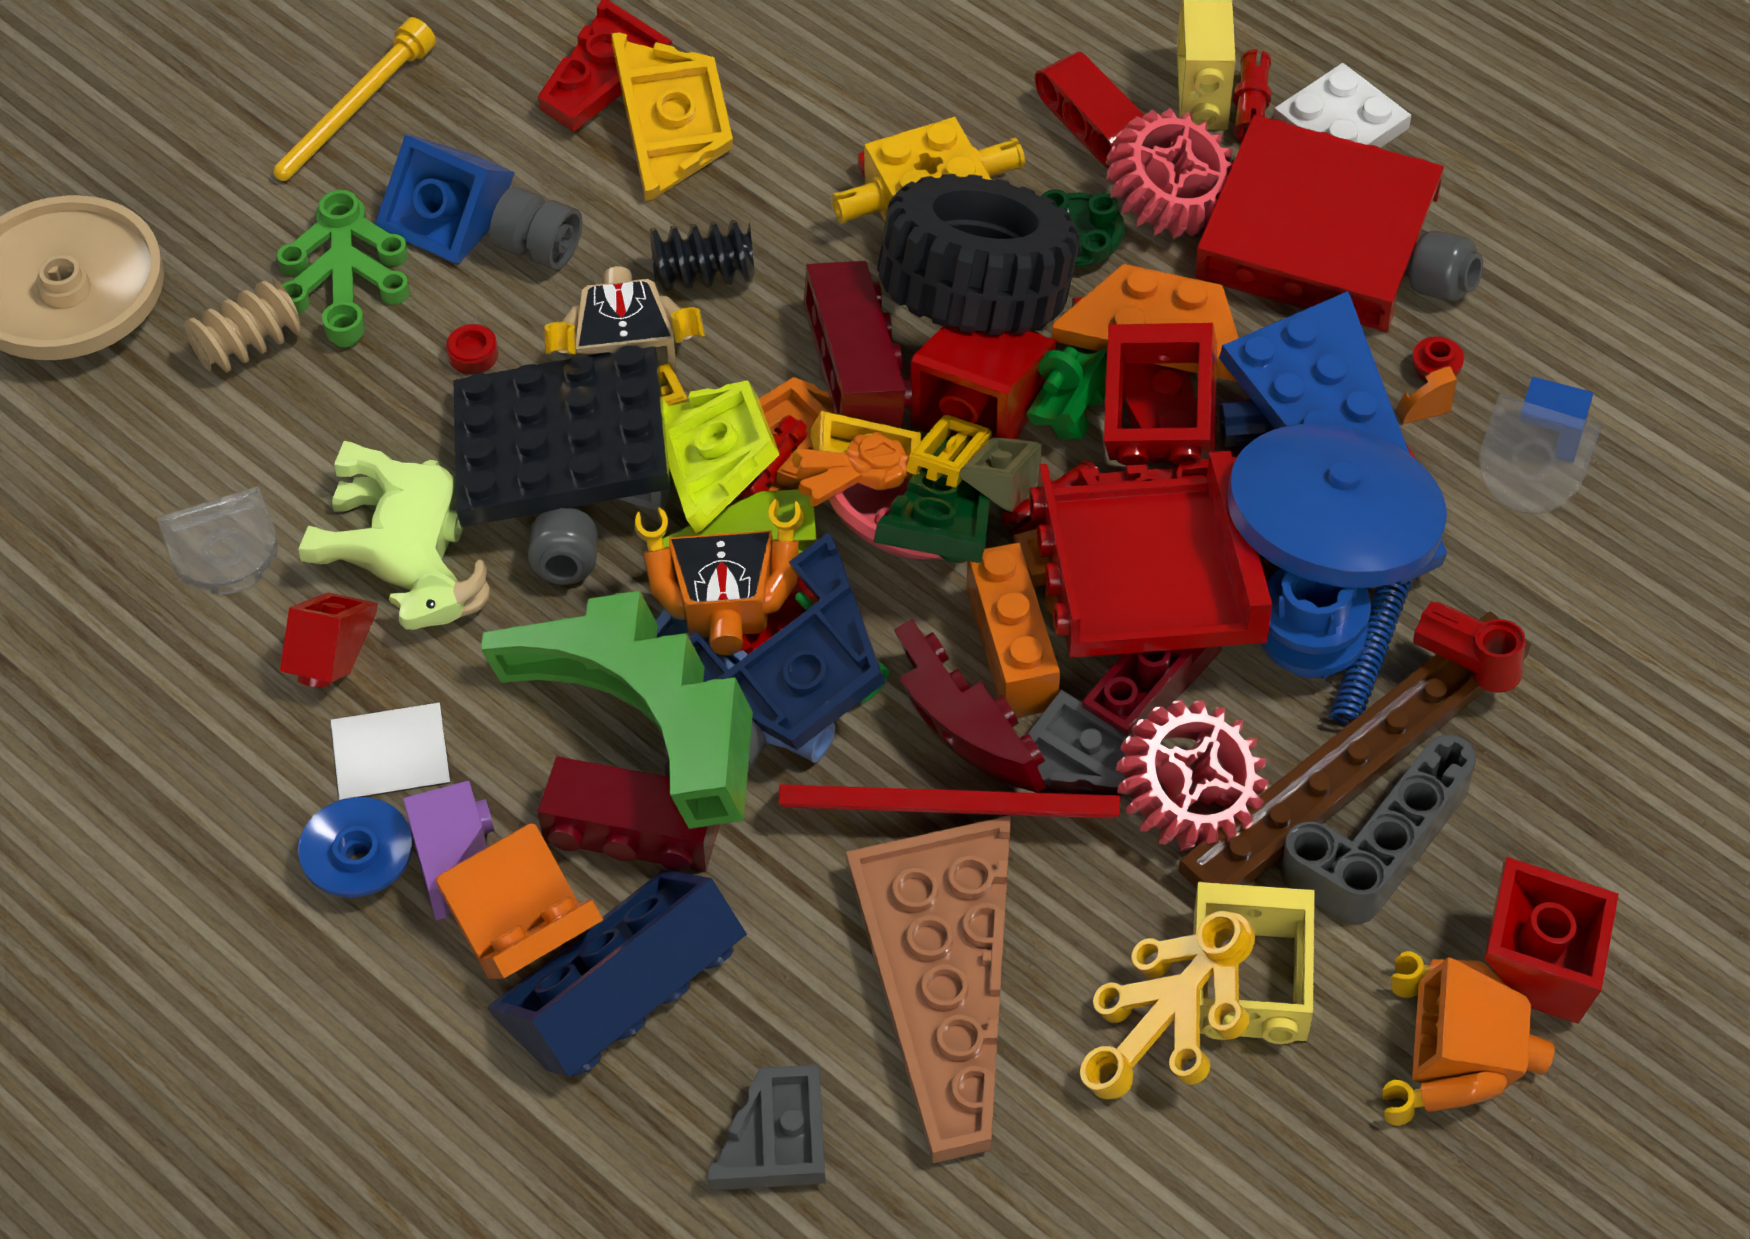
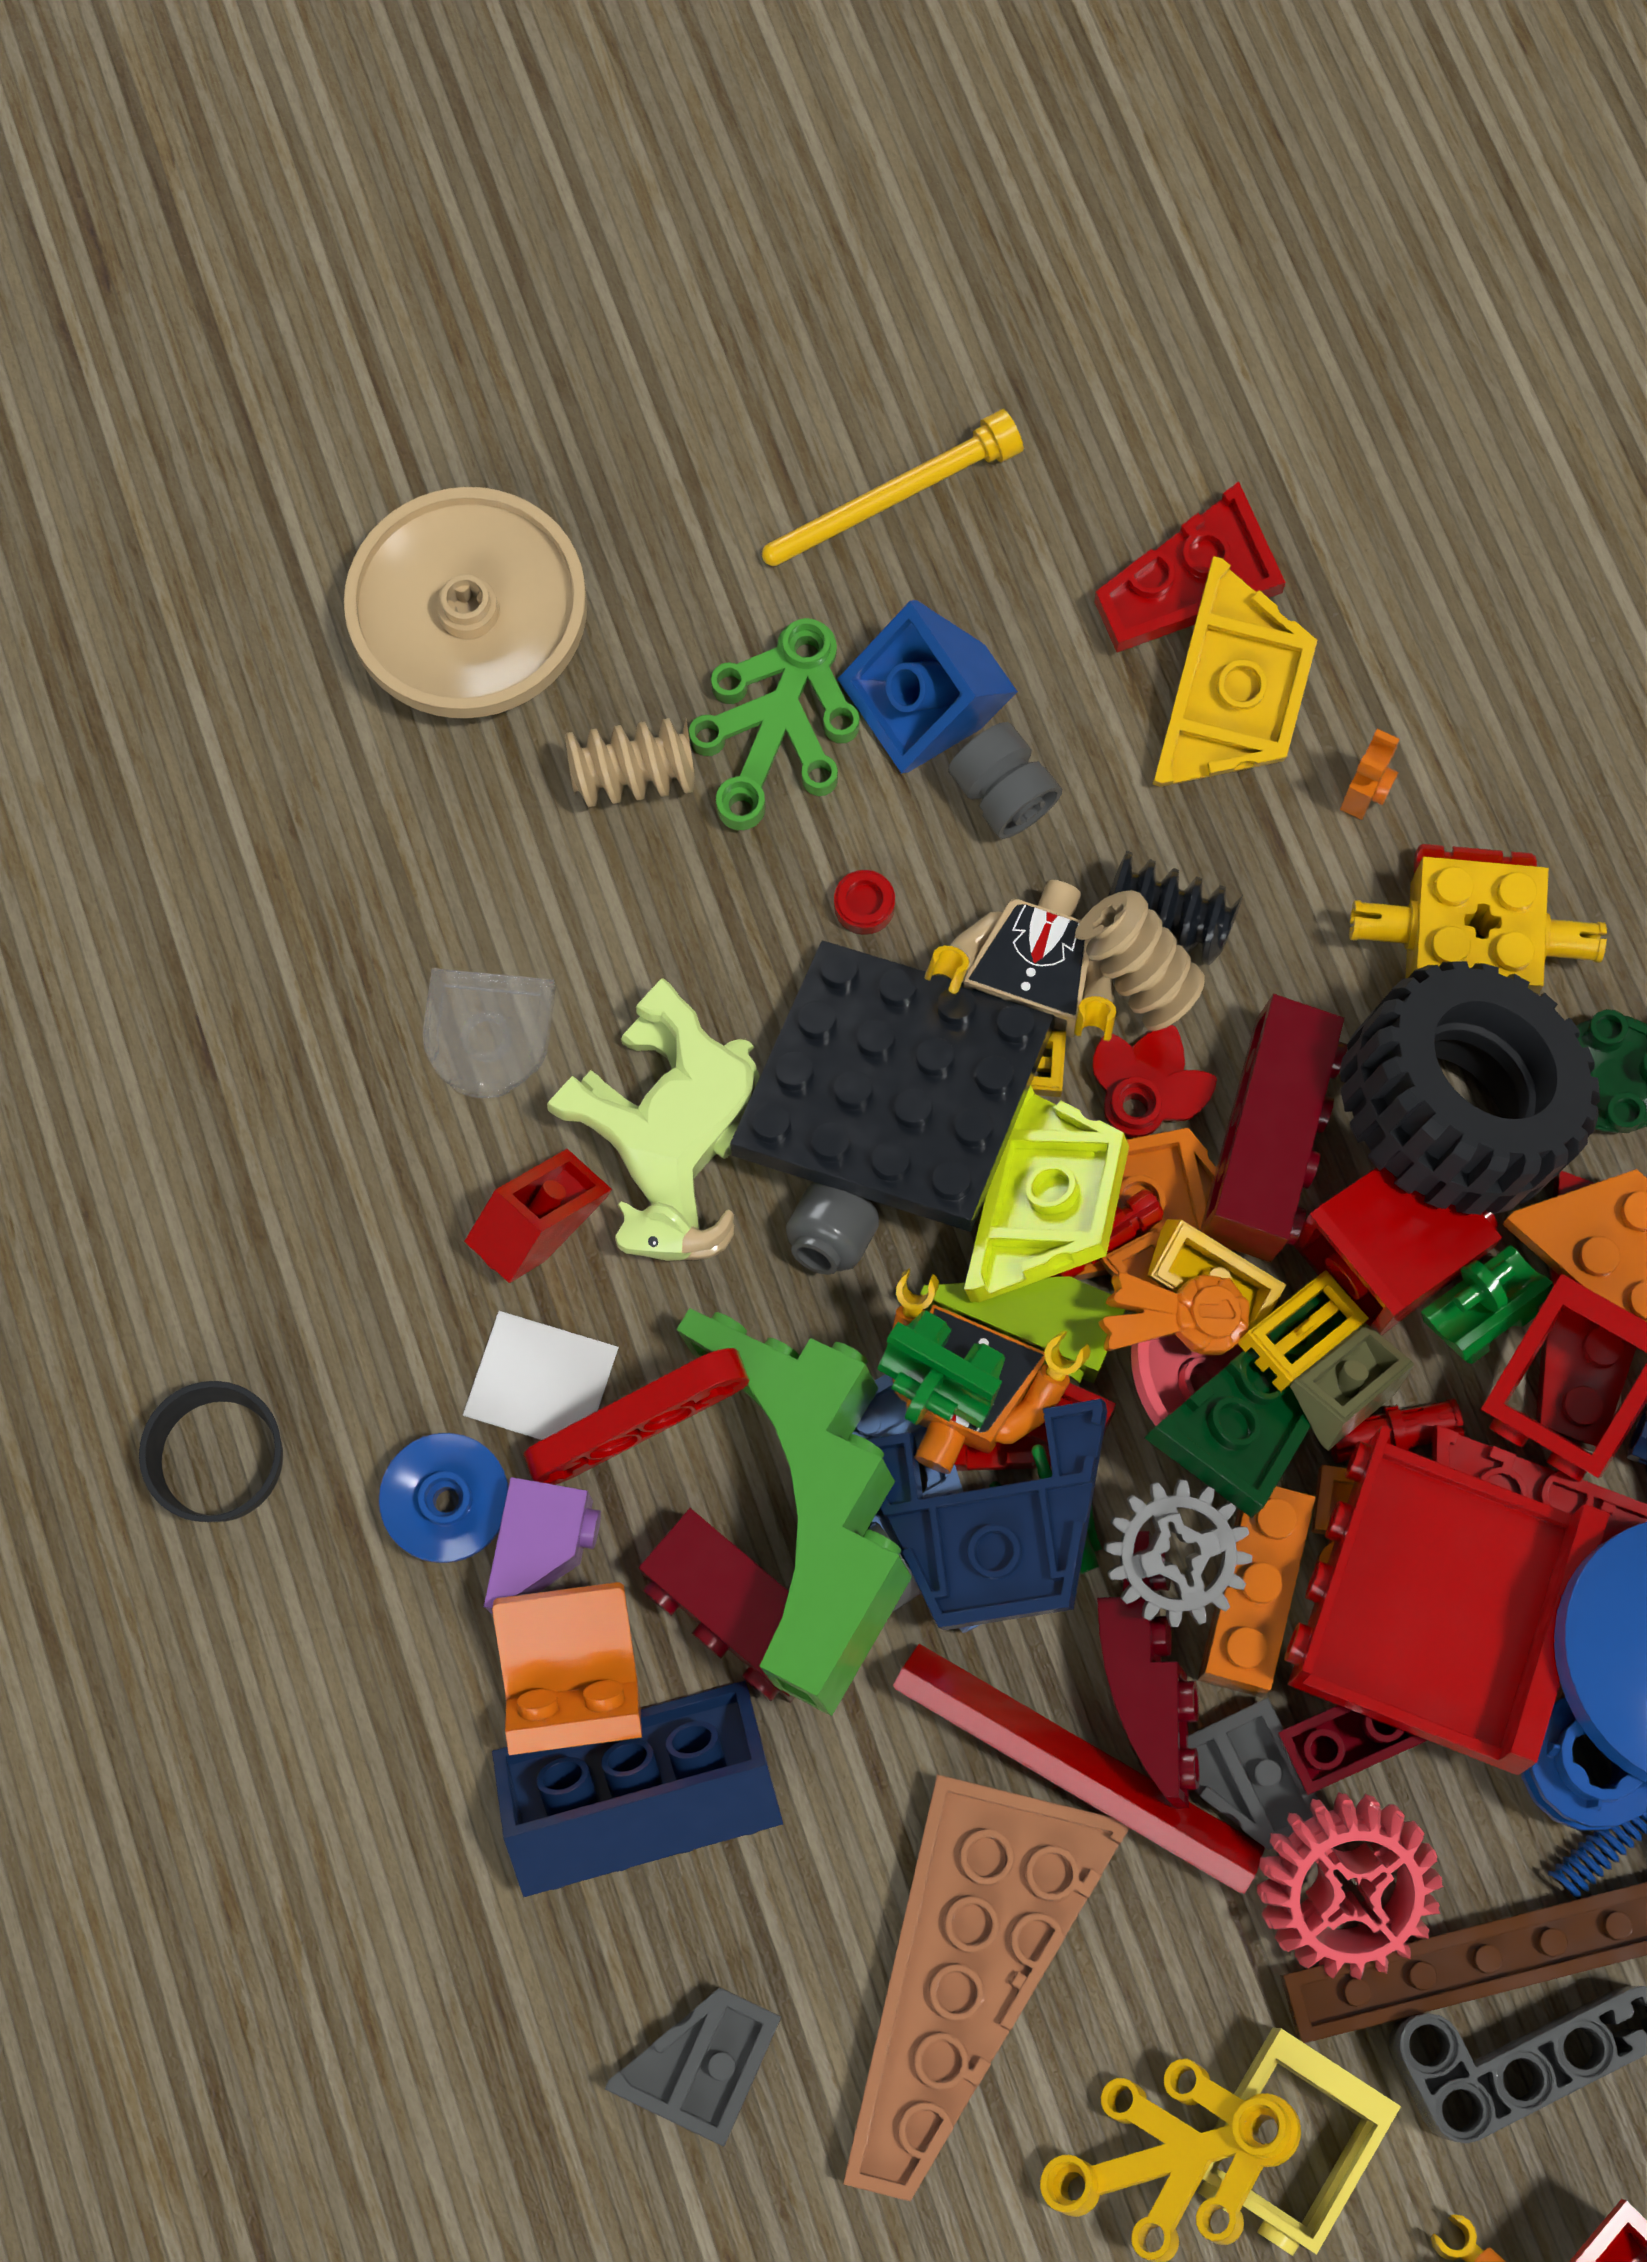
camera: 30 degrees right, 20 degrees up
(130, 862) = (166, 1417): none -> black tyre
(484, 709) = (637, 1417): none -> red beam
(699, 563) = (937, 1377): none -> green hips
(701, 279) = (1142, 958): none -> tan piece
(749, 360) = (1155, 1076): none -> red plate
(801, 125) = (1373, 776): none -> orange plate
(941, 614) = (1206, 1544): none -> light grey gear

